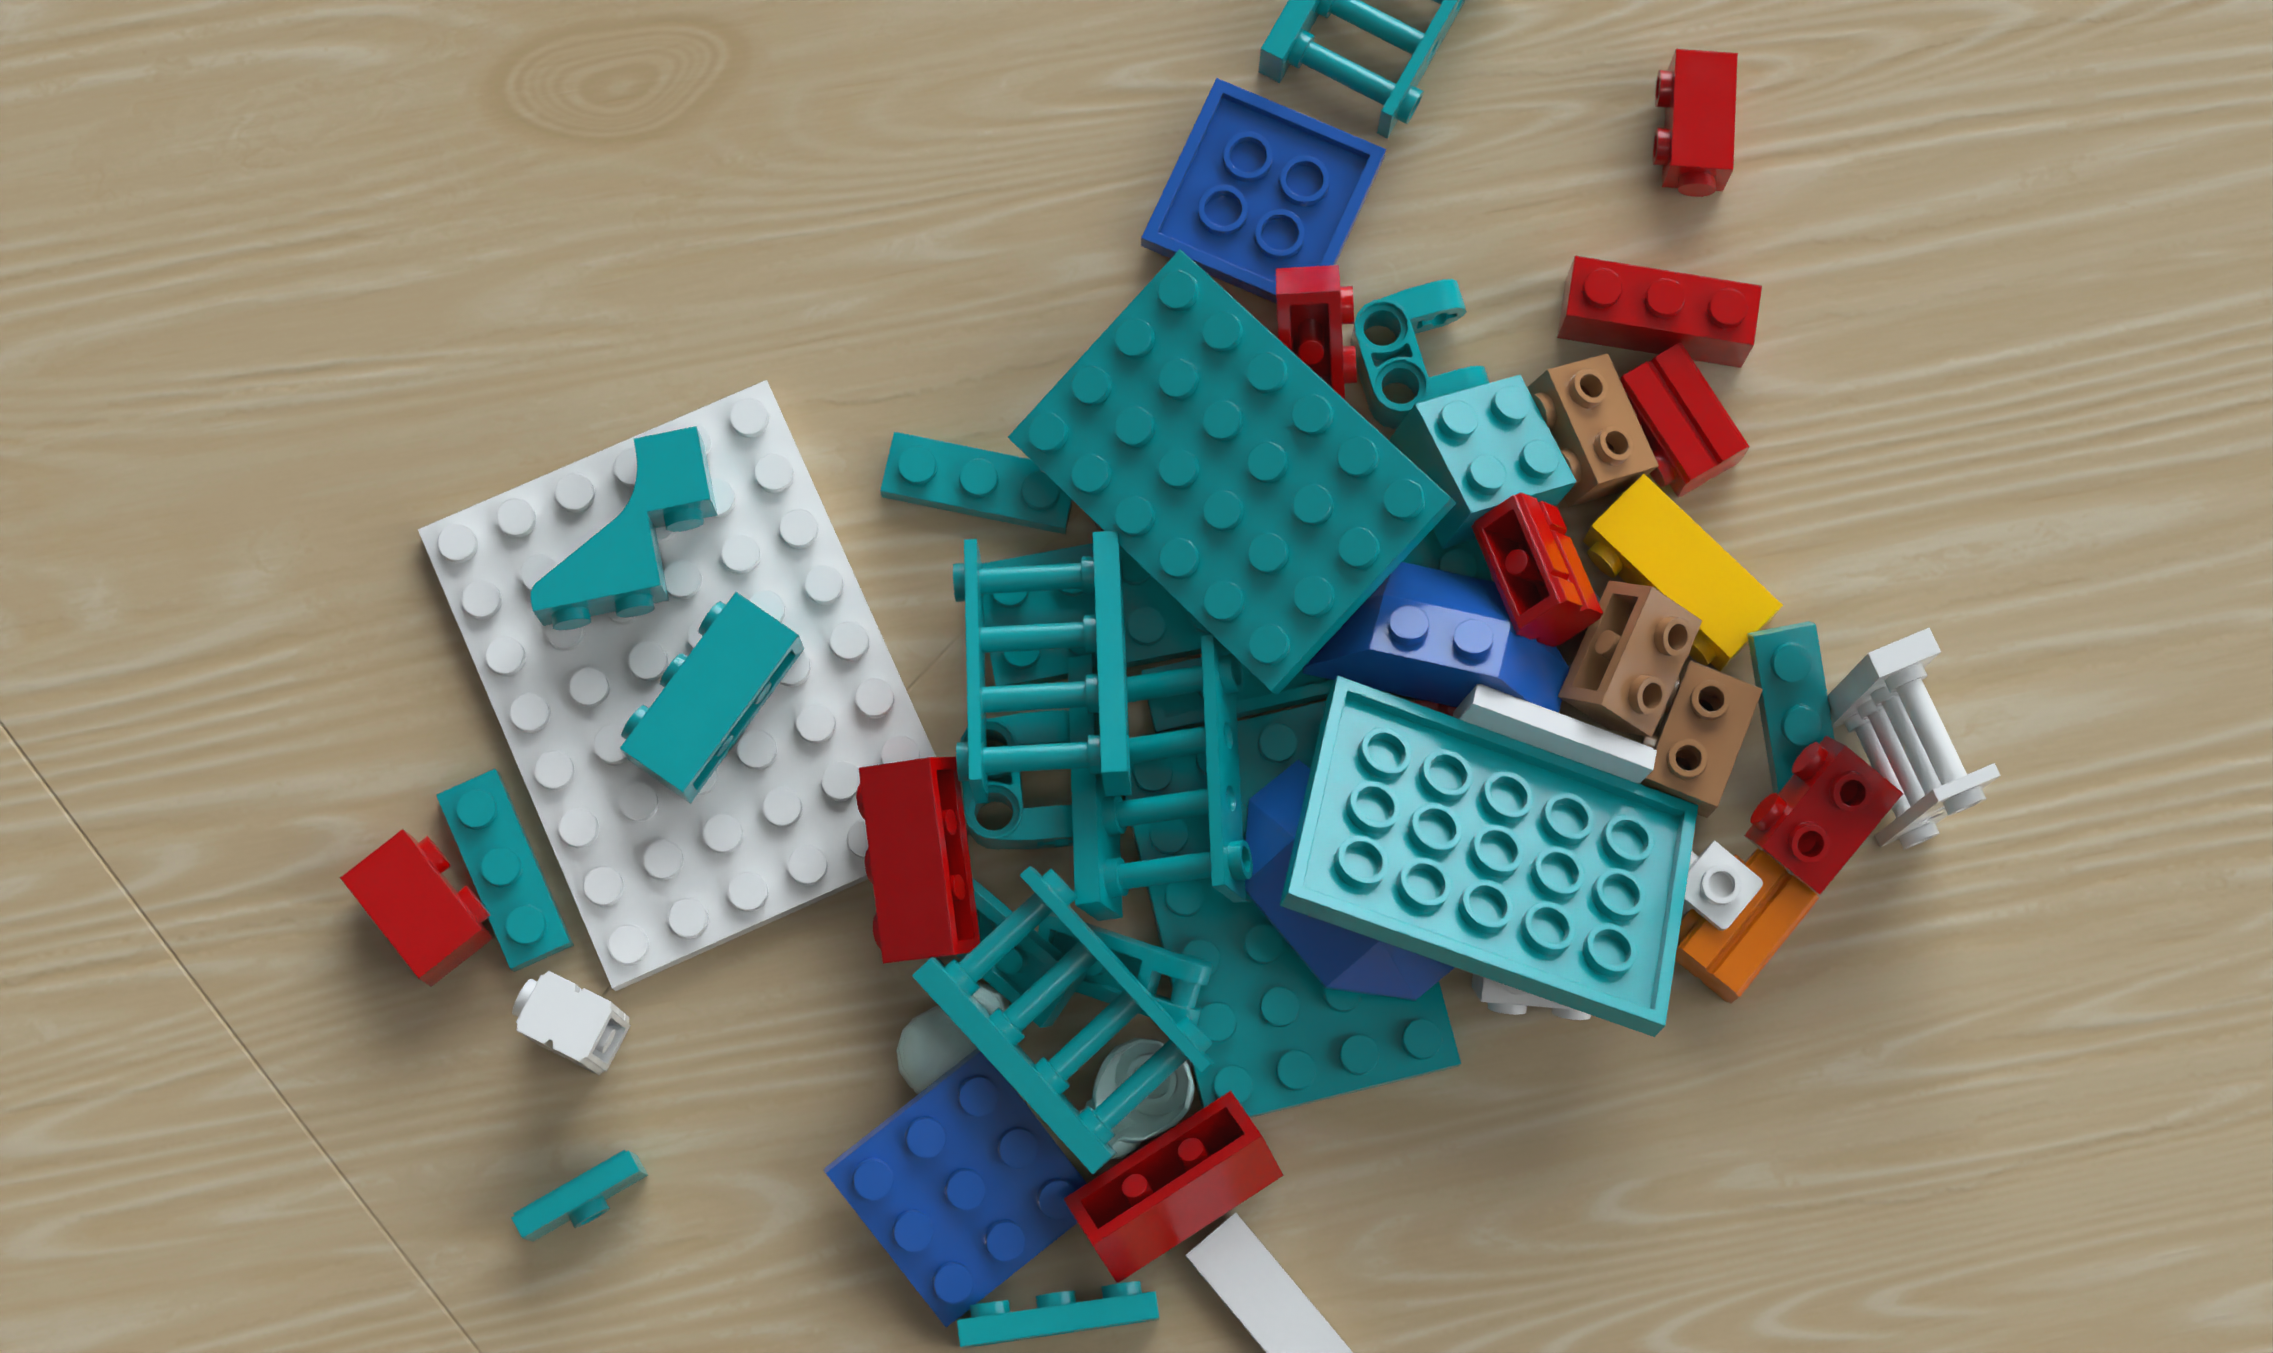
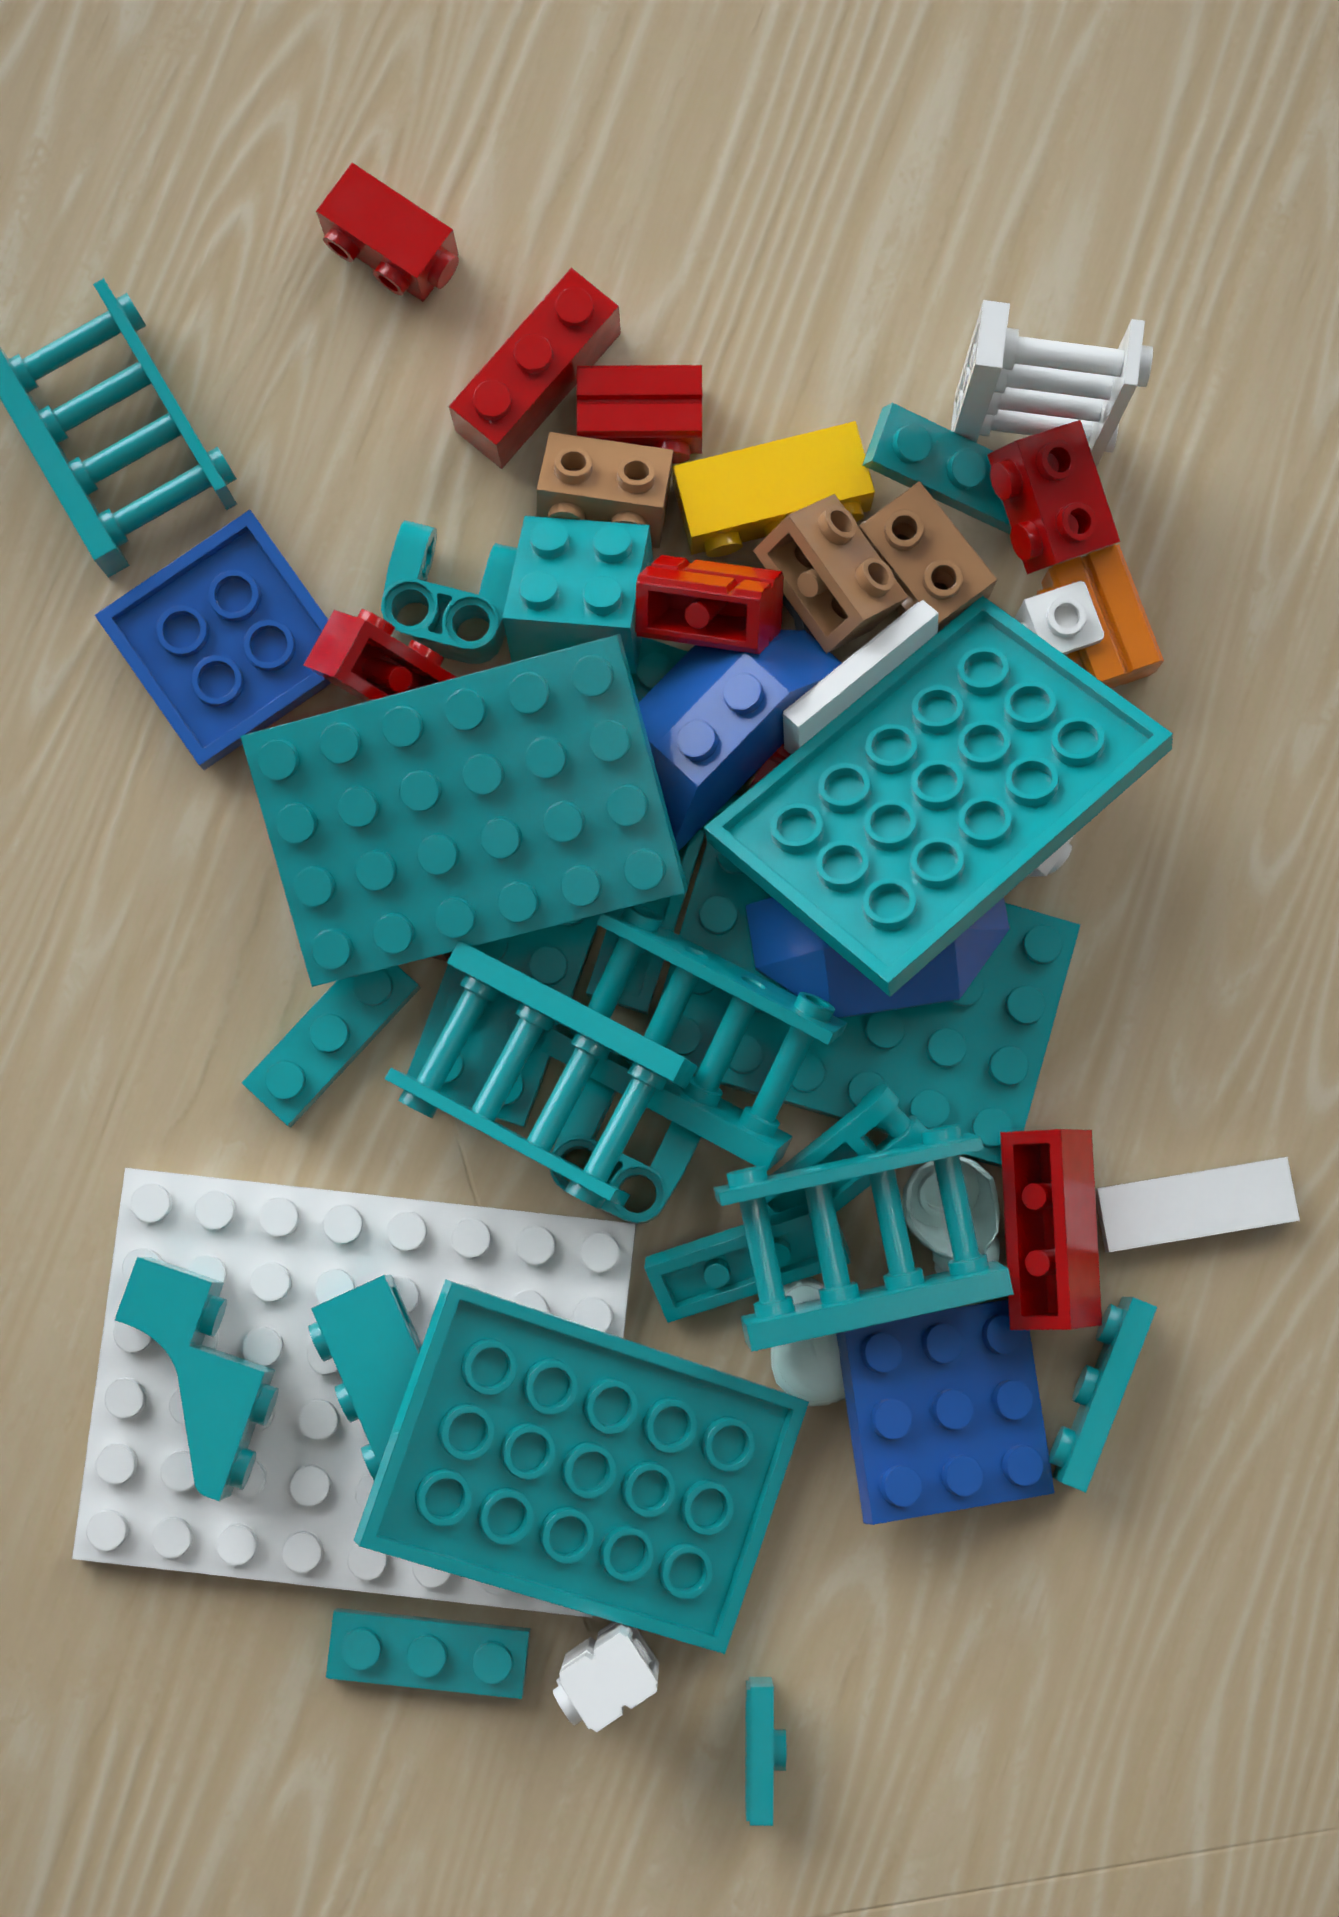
camera: 55 degrees left, 5 degrees up
(418, 907) = (419, 1751): red brick -> none
(732, 899) = (581, 1469): none -> teal plate
(918, 859) = (645, 1284): red brick -> none

